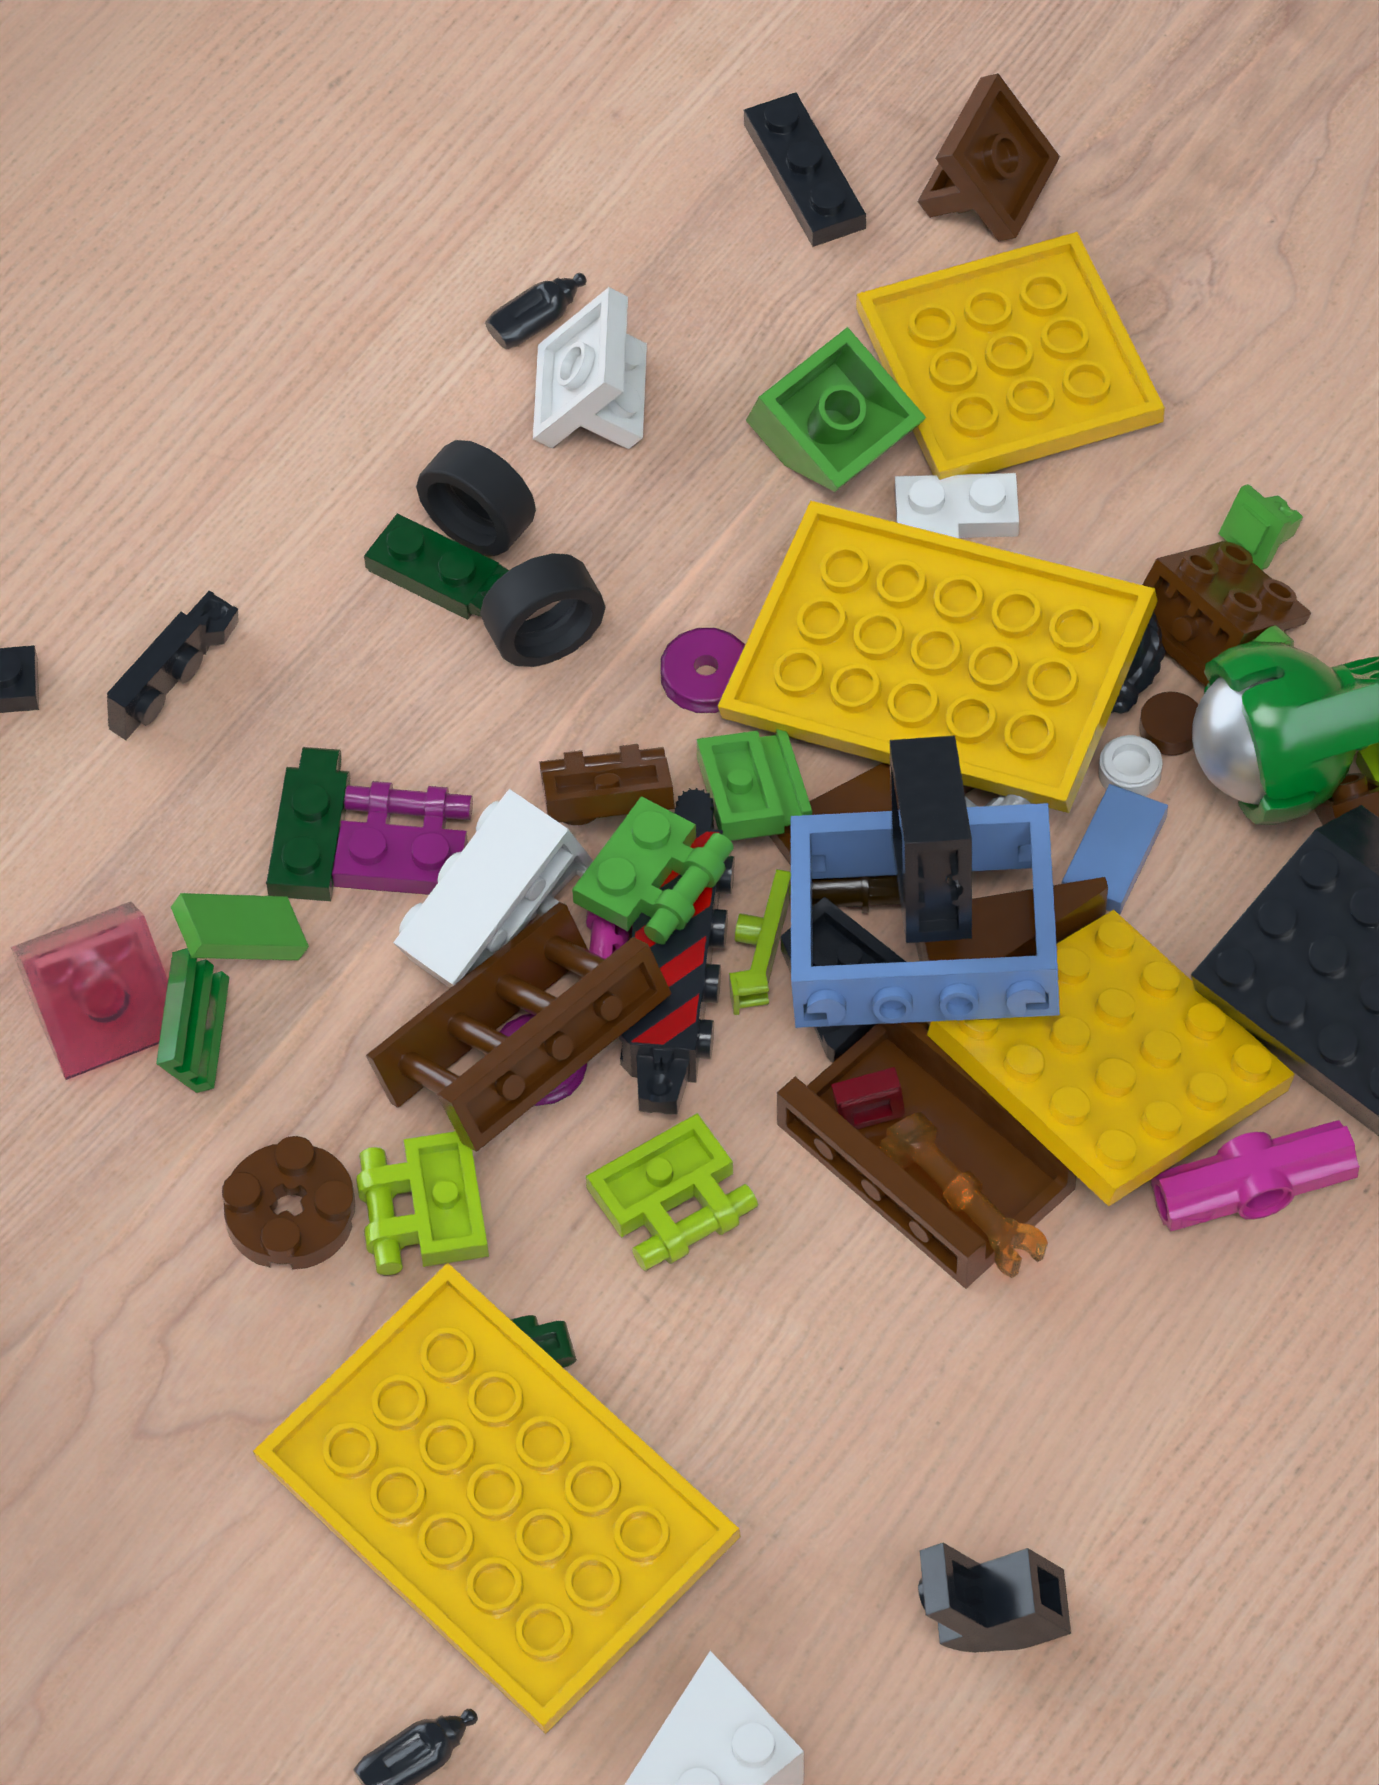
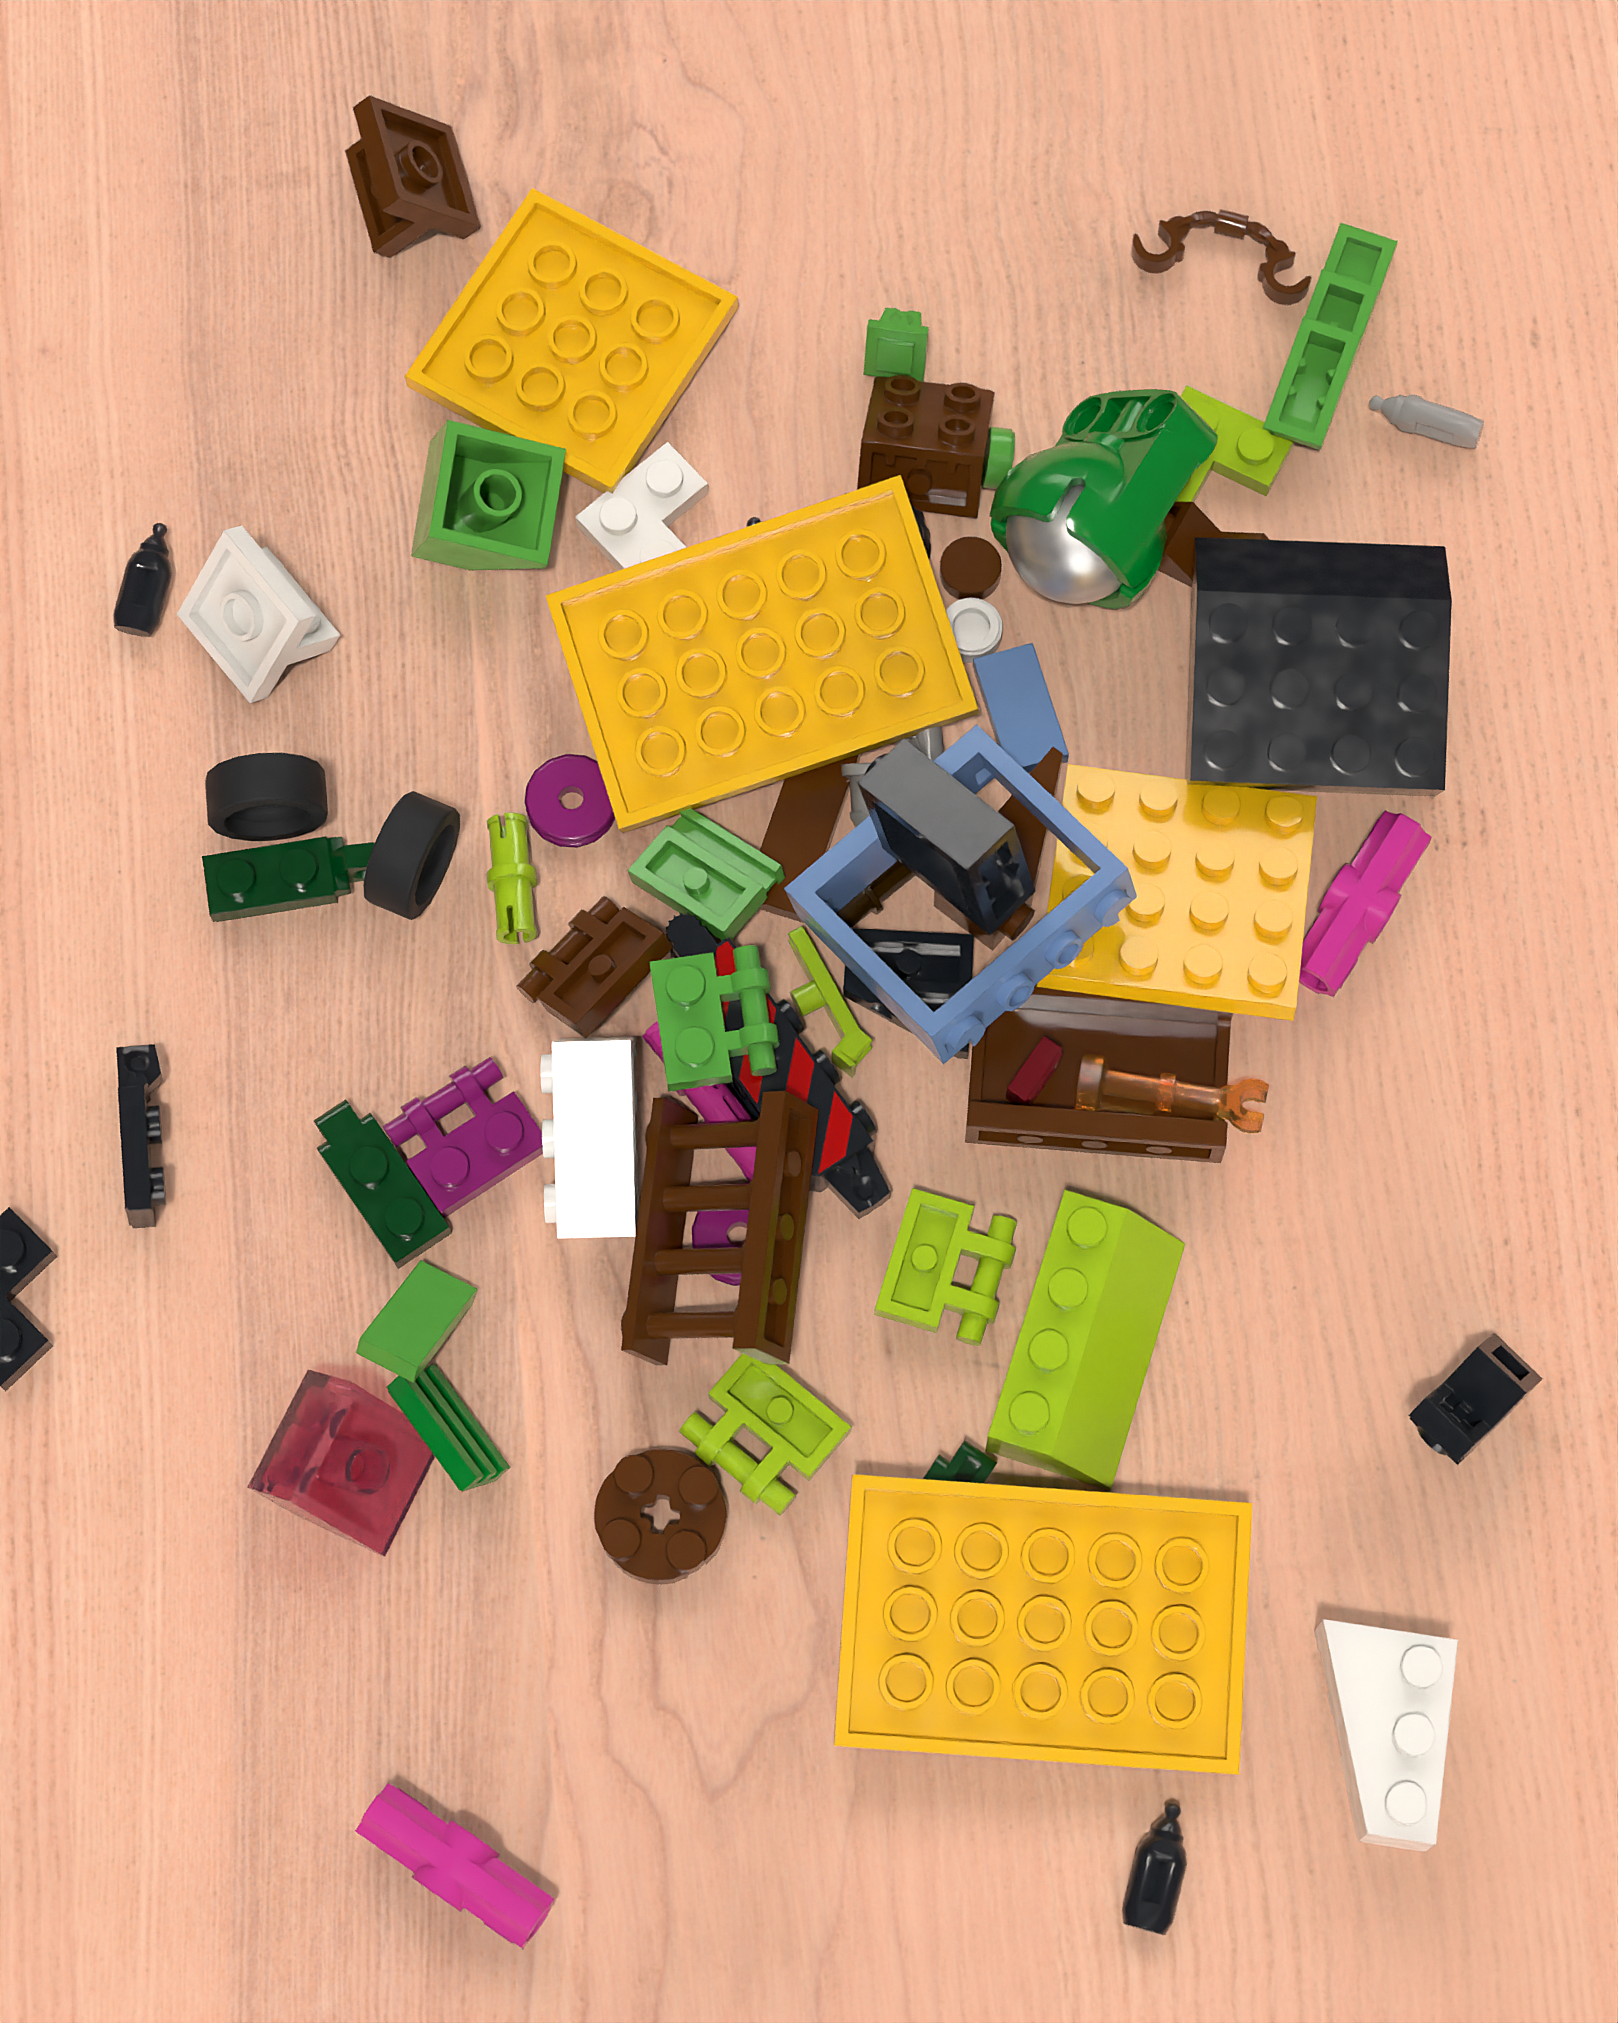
camera: 40 degrees left, 15 degrees up
(606, 687) = (511, 878): none -> lime pin
(726, 1322) = (1085, 1341): none -> lime slope
(804, 169) = (251, 288): black plate -> none

